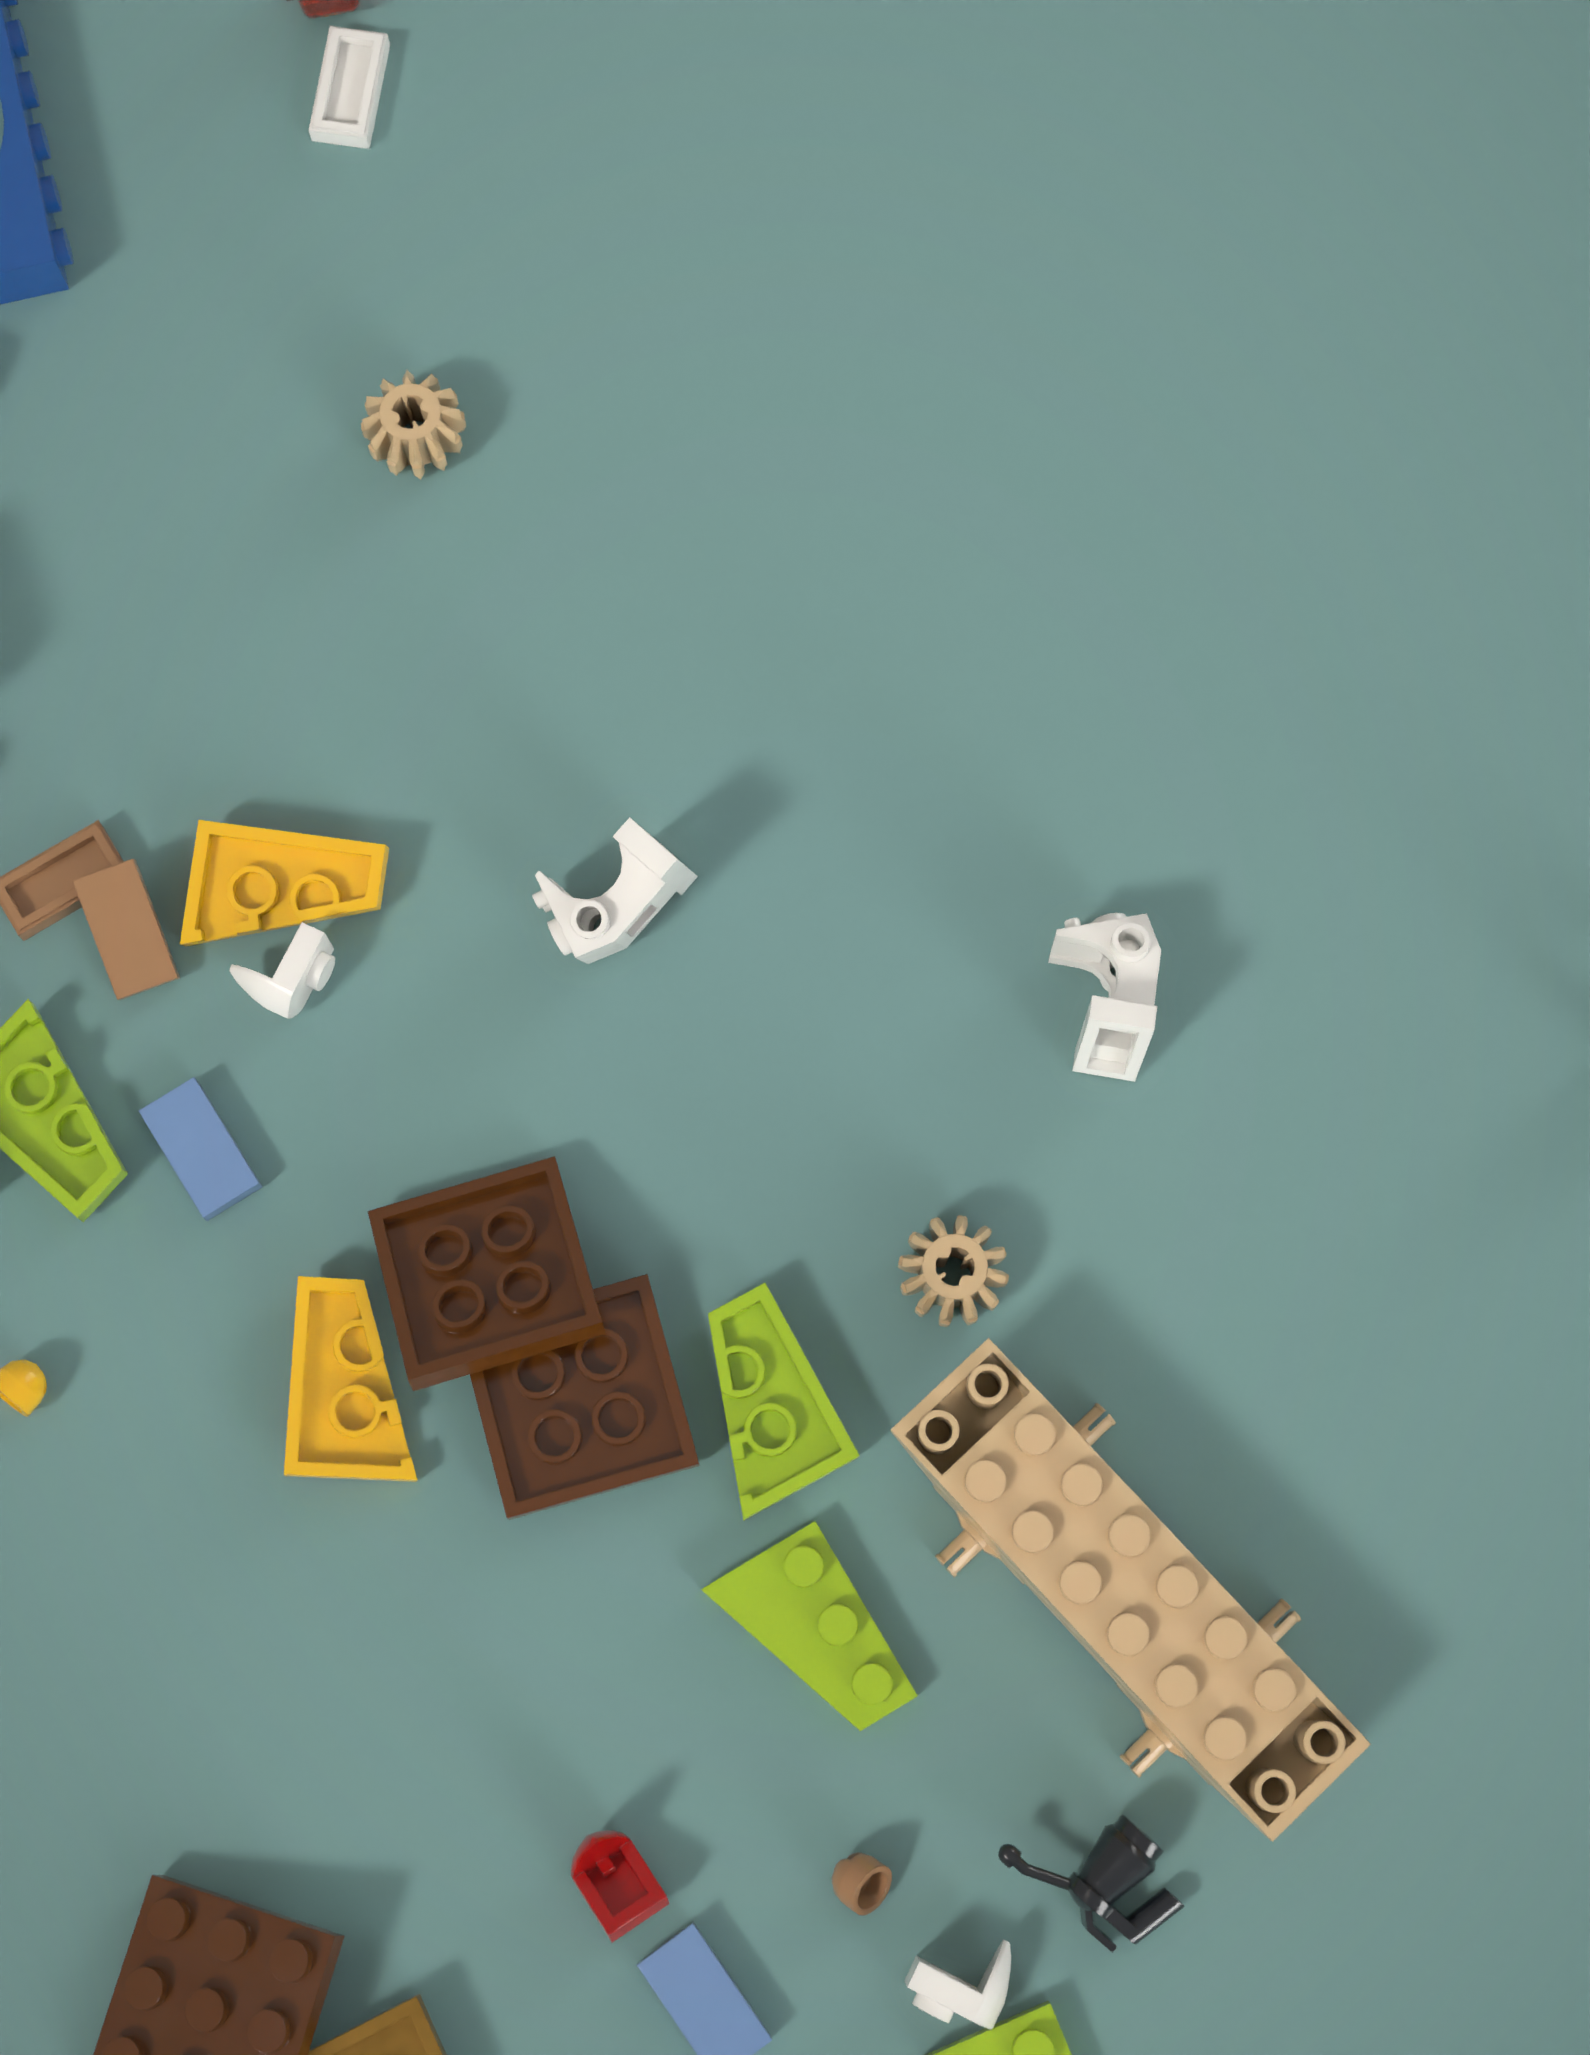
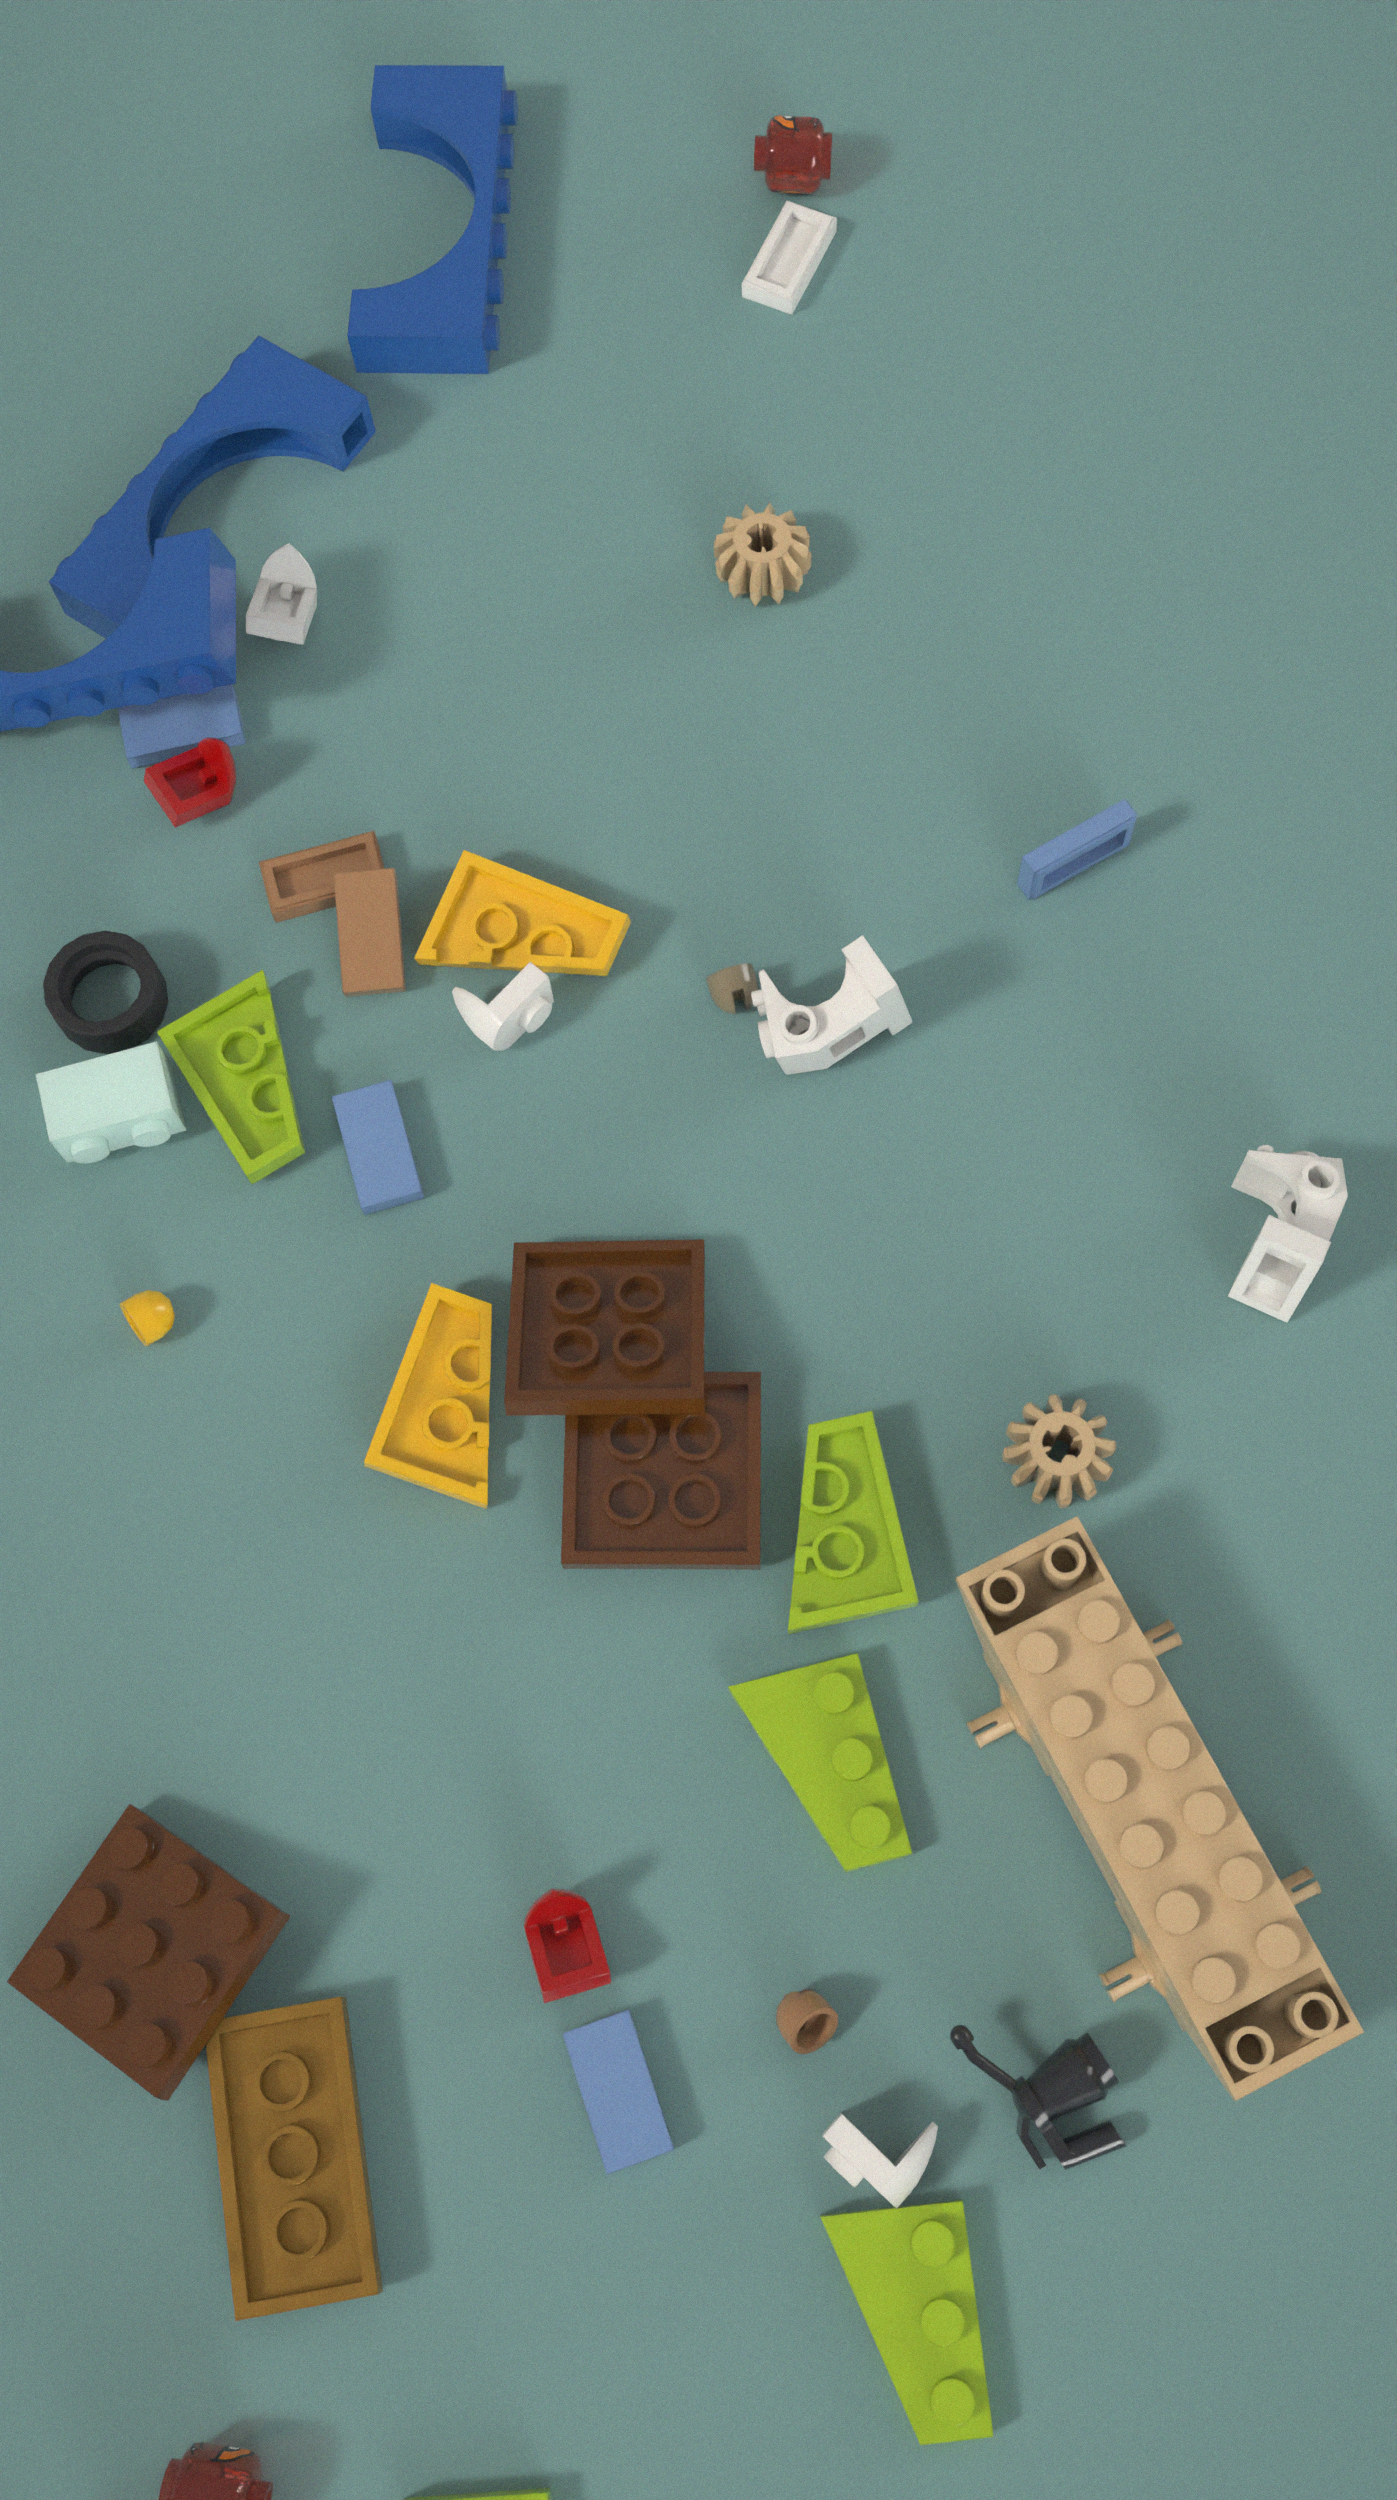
camera: 25 degrees right, 5 degrees down
(509, 887) = (731, 985): none -> dark tan hinge
(812, 660) = (1076, 850): none -> medium blue tile

